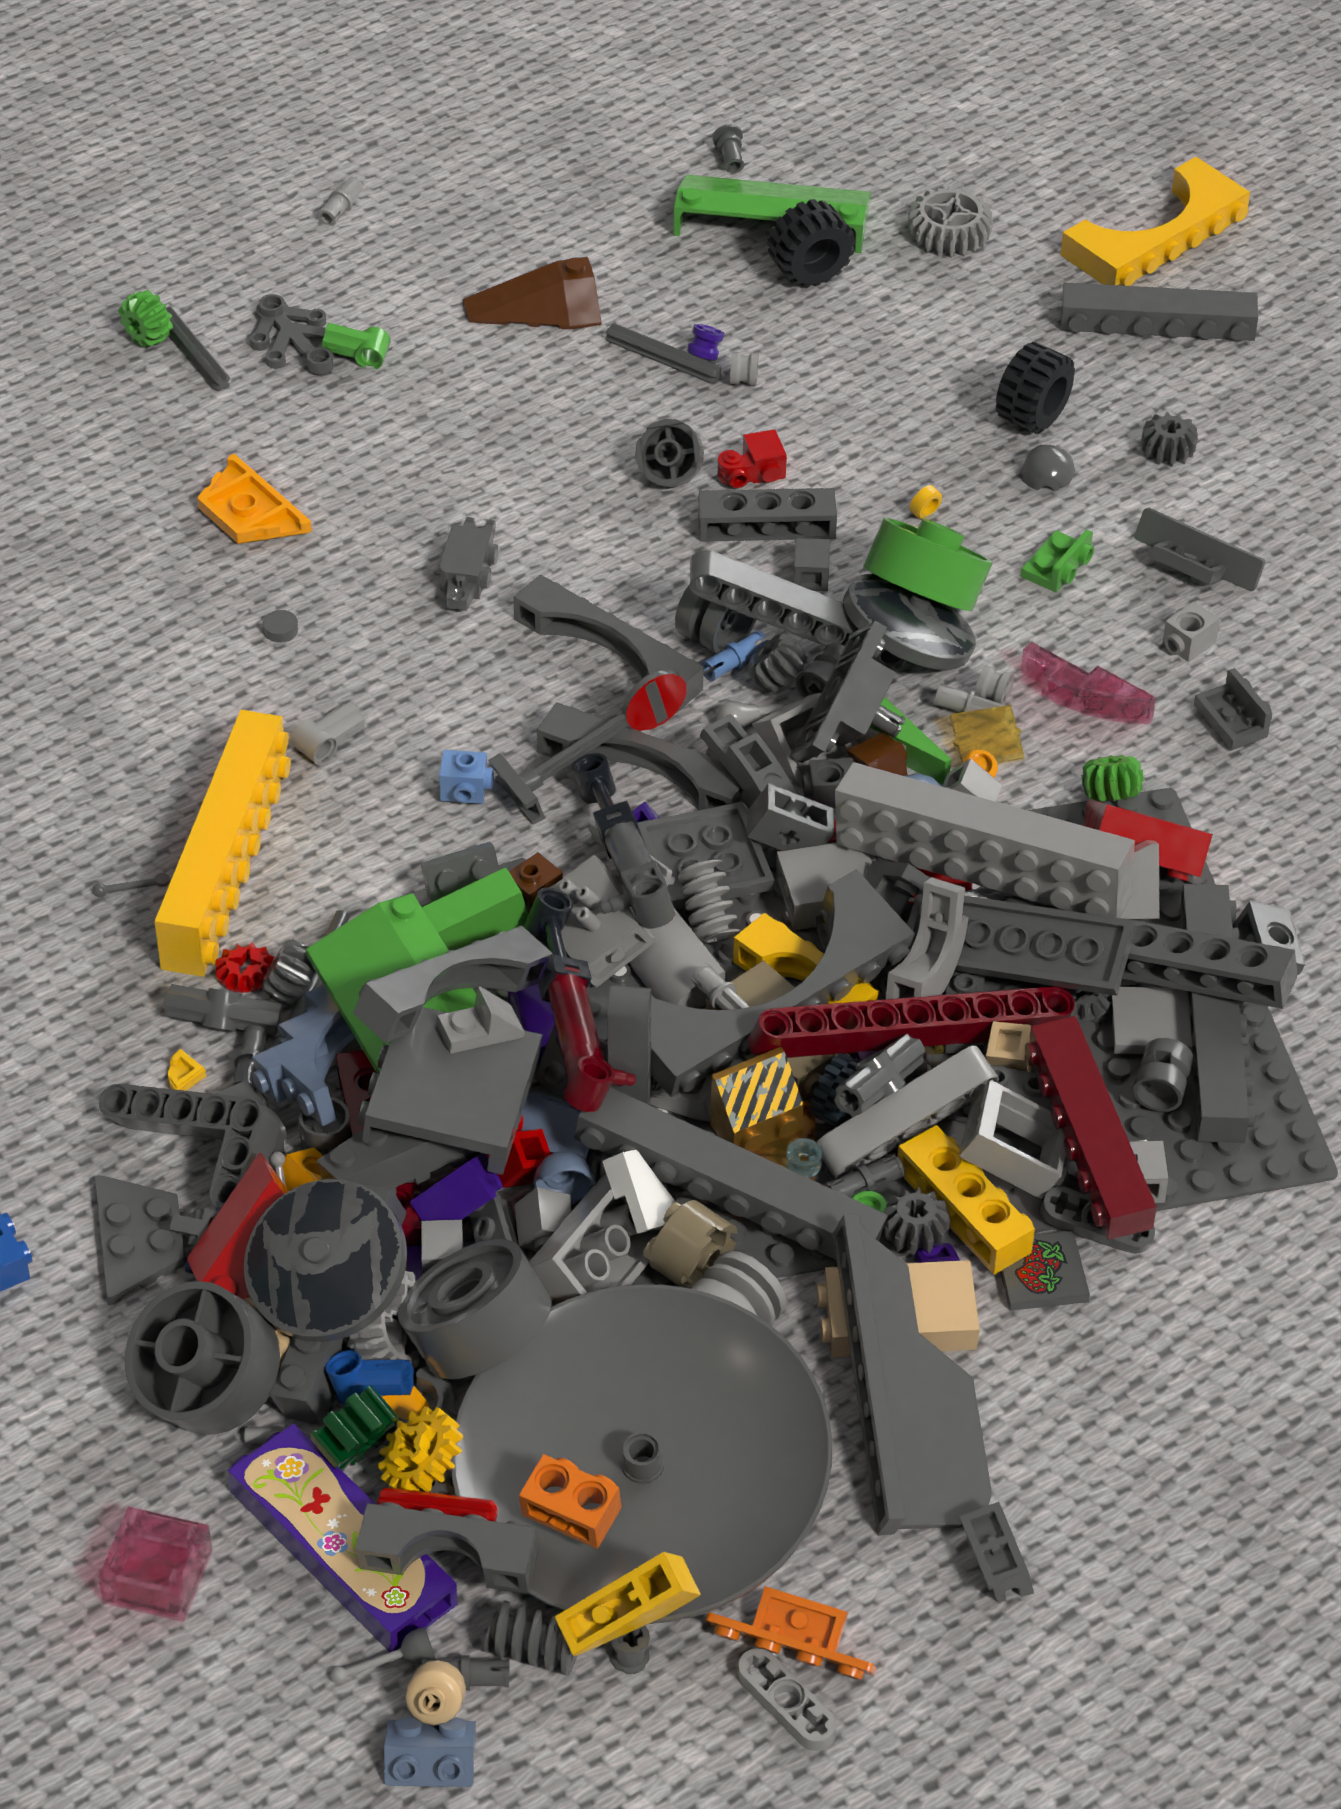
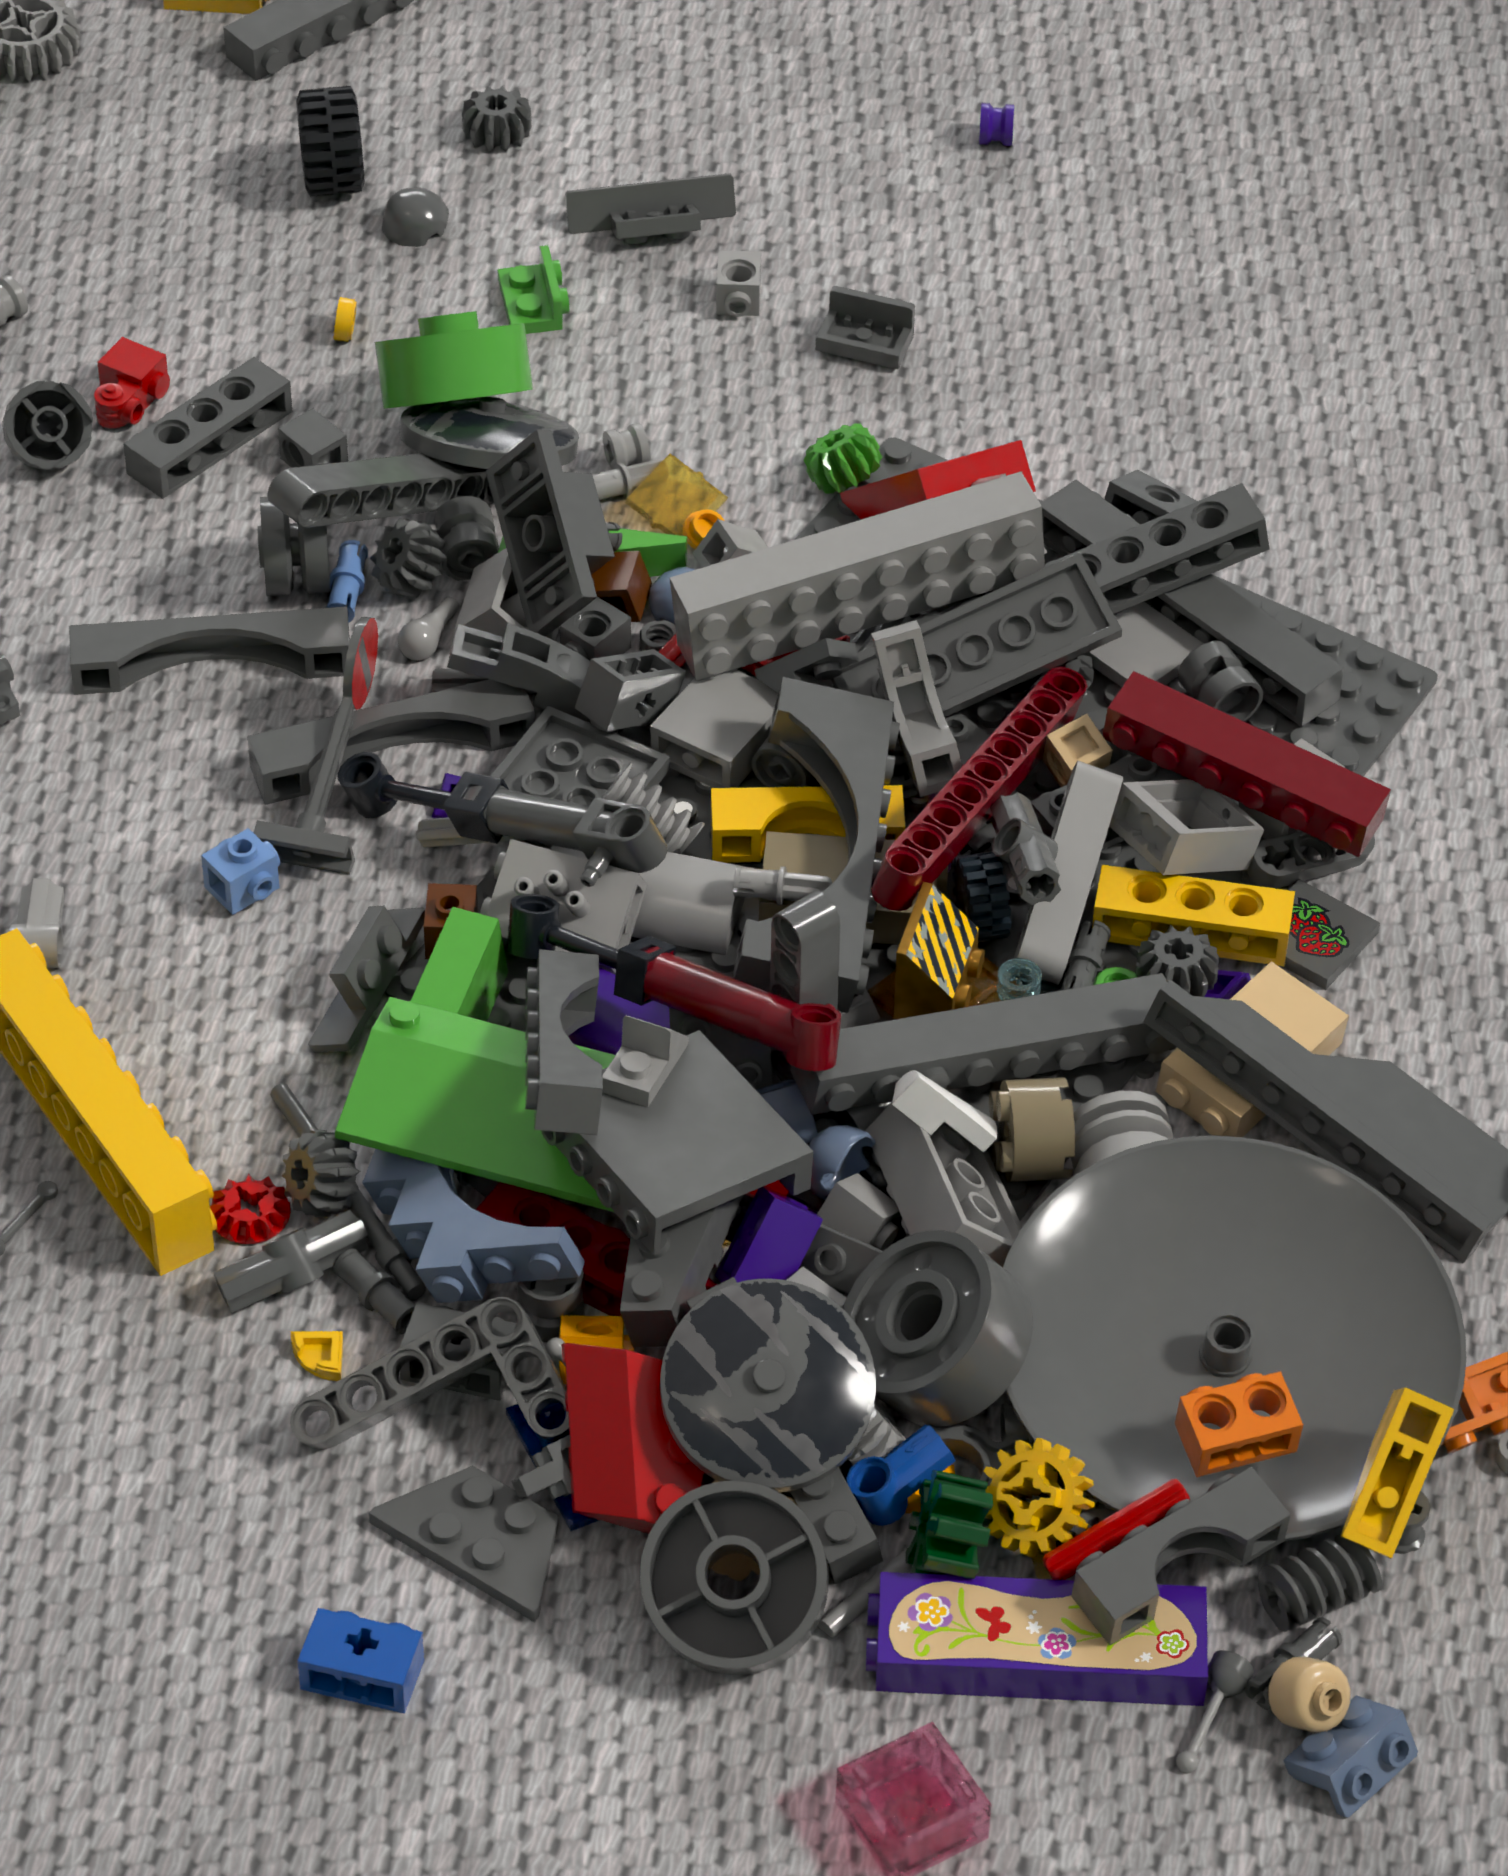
camera: 45 degrees left, 0 degrees up
(1092, 693) = (701, 402): clear pink slope -> none

